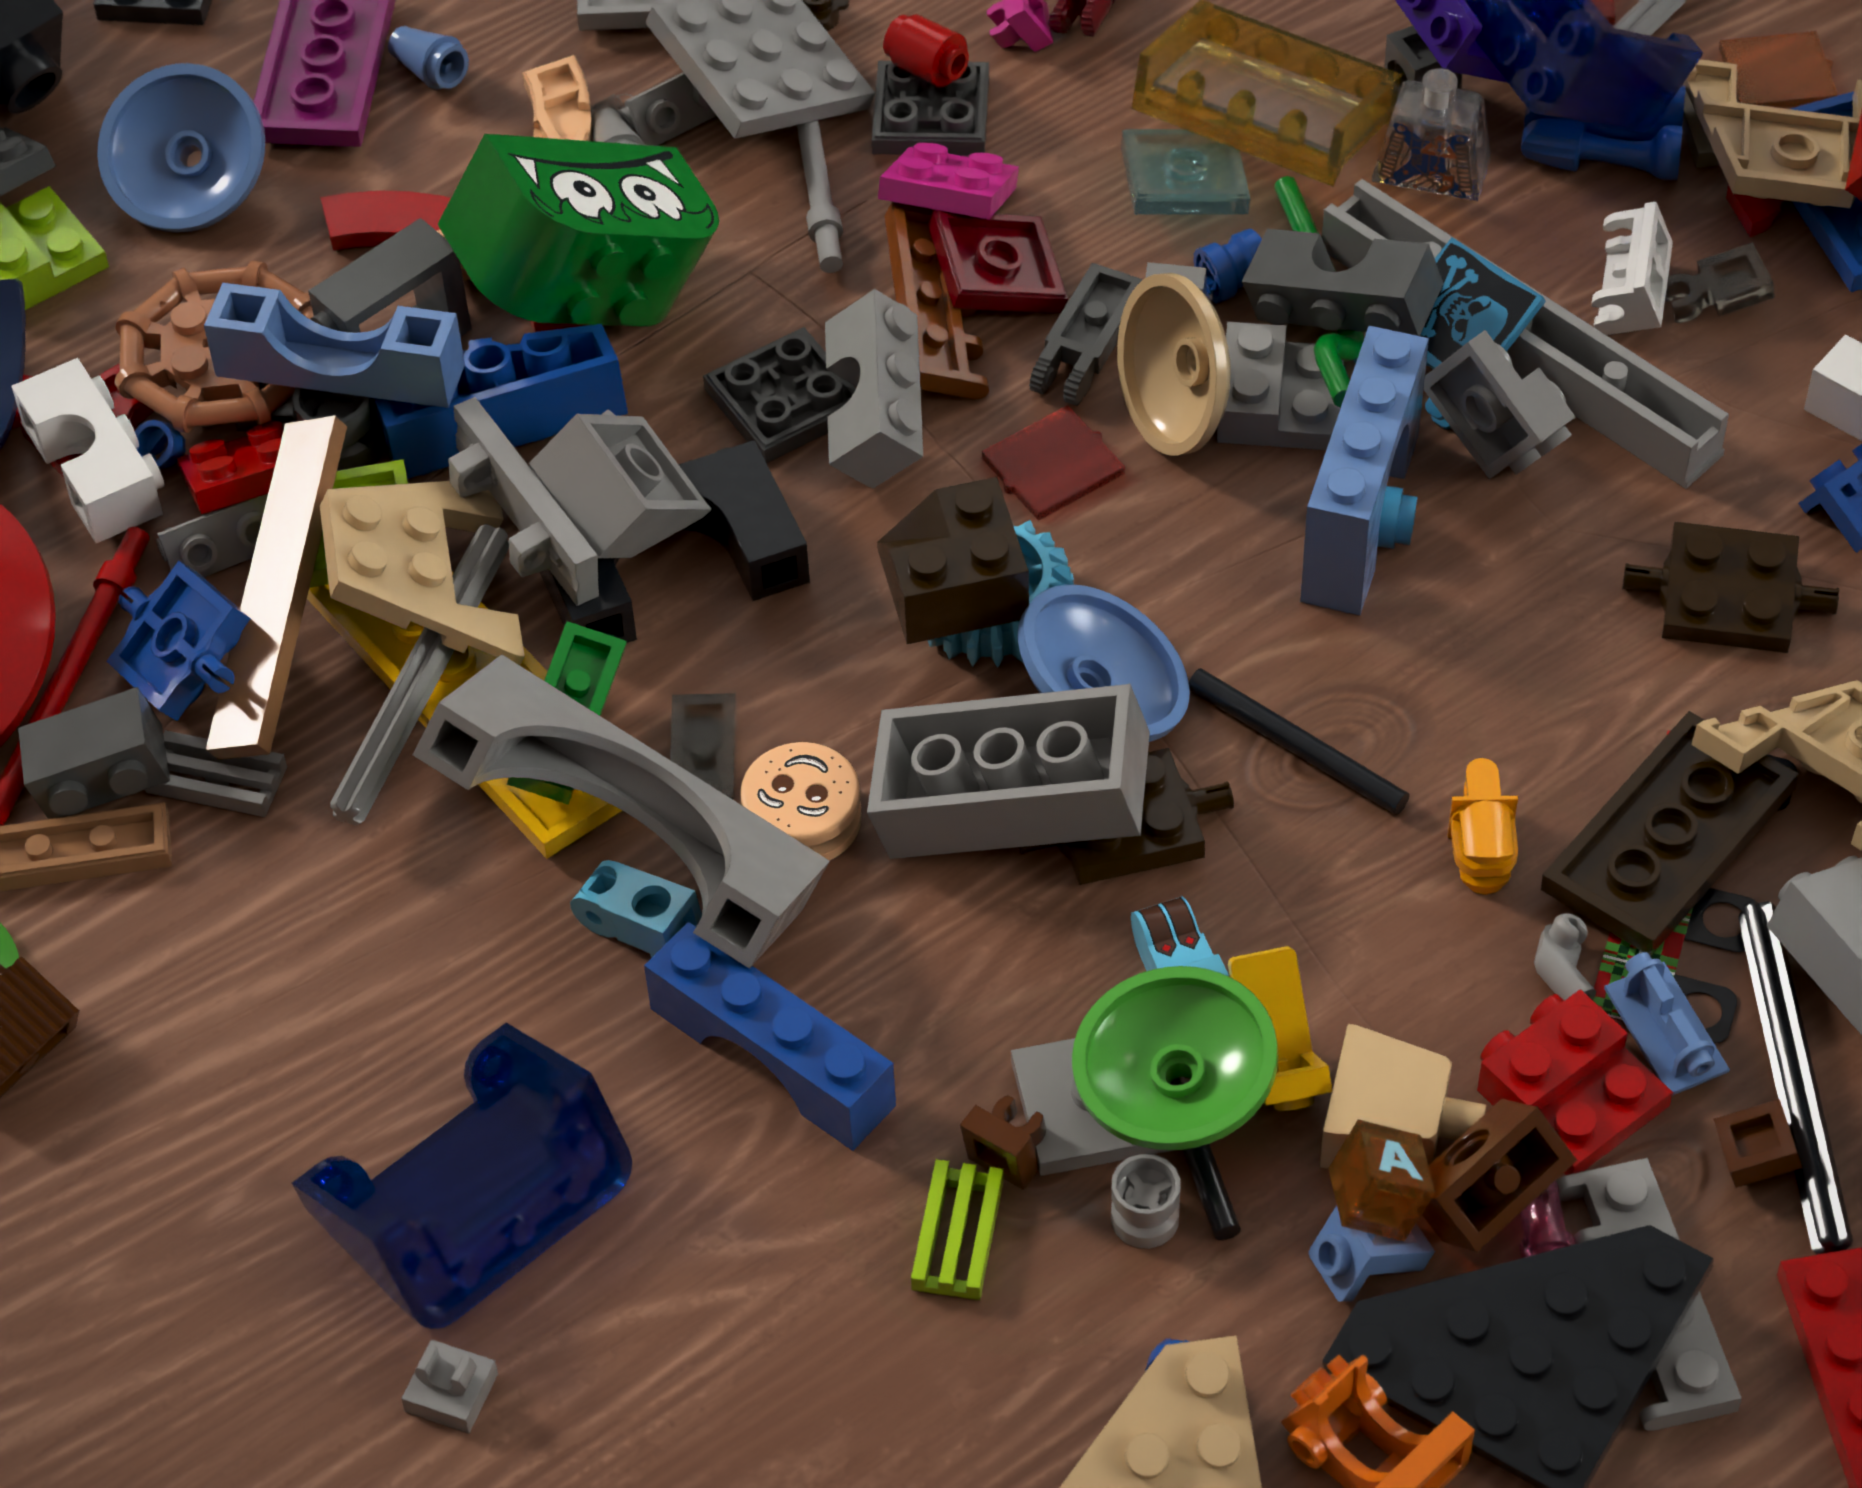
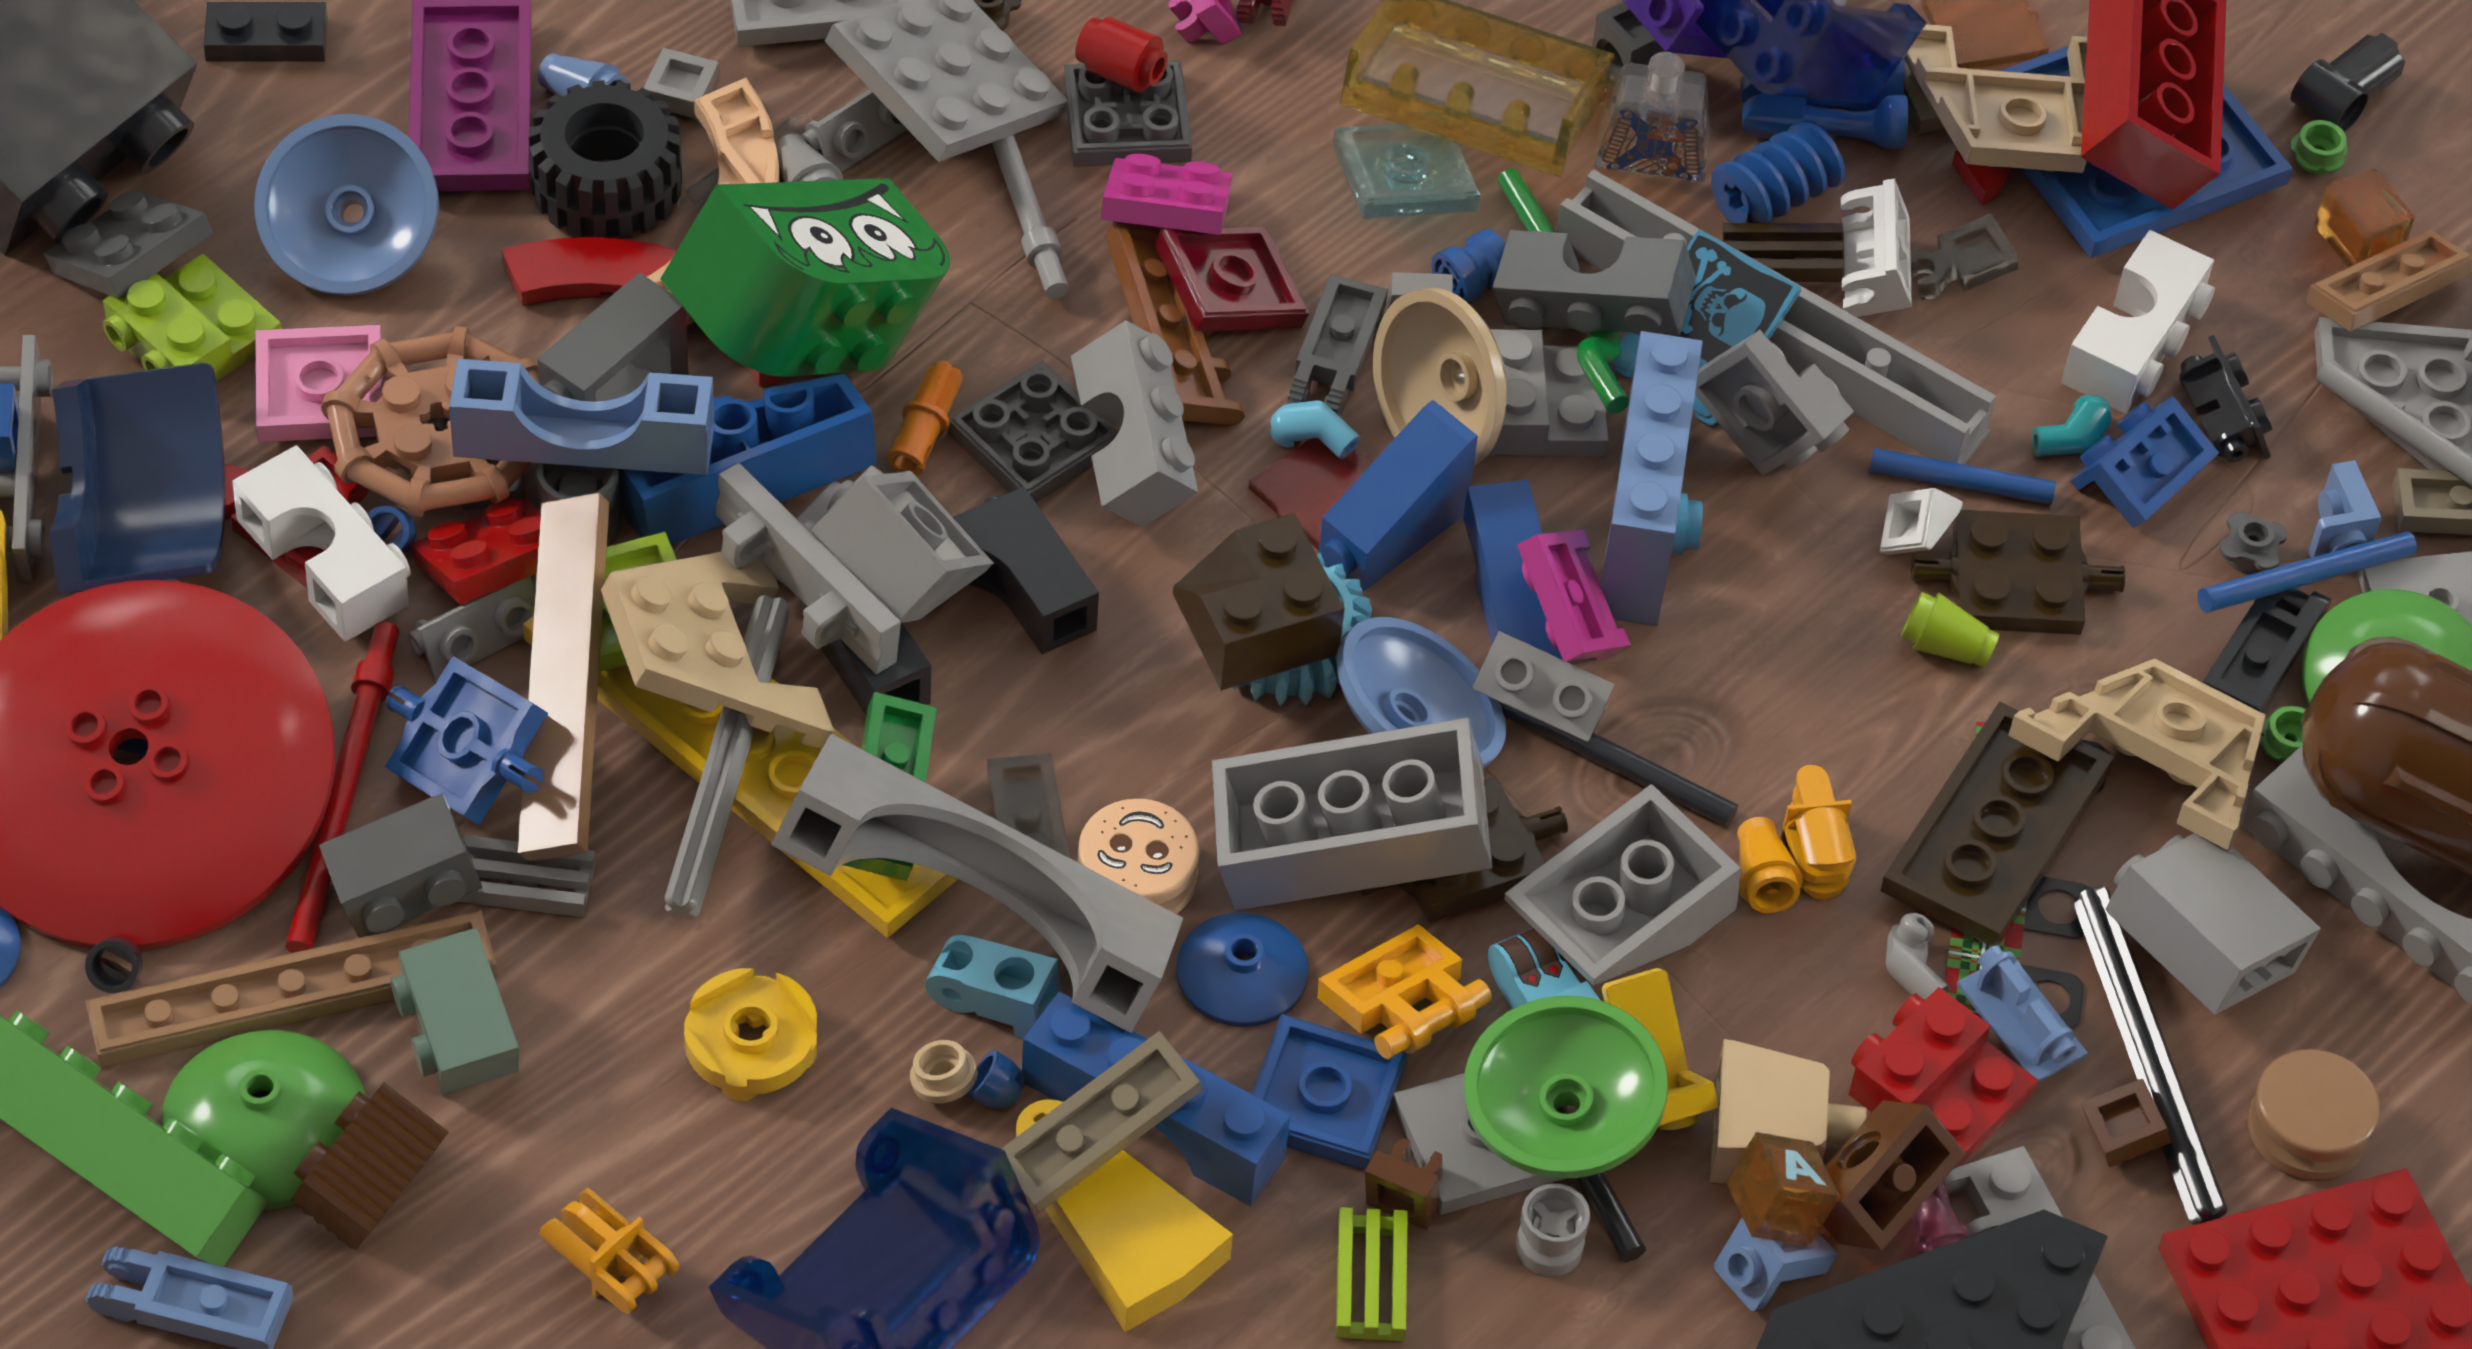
camera: 15 degrees left, 0 degrees up
(104, 290) = (298, 370): none -> bright pink plate
(113, 896) = (456, 1011): none -> sand green brick
(220, 1148) = (609, 1246): none -> light orange arm
(399, 970) = (758, 1065): none -> yellow plate
(425, 119) = (605, 125): none -> black tyre
(515, 53) = (682, 79): none -> light grey plate
(570, 992) = (943, 1072): none -> tan plate
(622, 1007) = (997, 1081): none -> blue hinge
(681, 374) = (925, 418): none -> orange axle
(697, 1052) = (1101, 1120): none -> dark tan plate
(718, 1155) = (1134, 1234): none -> yellow piece
(893, 936) = (1242, 990): none -> blue dish
(949, 1040) = (1331, 1088): none -> blue tile
(1029, 936) = (1392, 979): none -> light orange plate
(1051, 397) = (1313, 420): none -> medium azure arm
(1120, 475) = (1402, 497): none -> blue slope
(1220, 560) = (1496, 521): none -> blue slope
(1229, 664) = (1543, 686): none -> light grey hinge
(1268, 577) = (1571, 596): none -> dark pink plate
(1277, 868) = (1629, 889): none -> light grey slope
(1426, 859) = (1768, 872): none -> light orange cone
(1546, 195) = (1778, 174): none -> blue piece
(1546, 259) = (1789, 241): none -> dark brown tile
(1634, 529) = (1917, 520): none -> white slope
(1649, 639) = (1948, 631): none -> lime cone
(1689, 491) = (1962, 476): none -> blue bar
(1818, 451) = (2079, 433): none -> teal arm

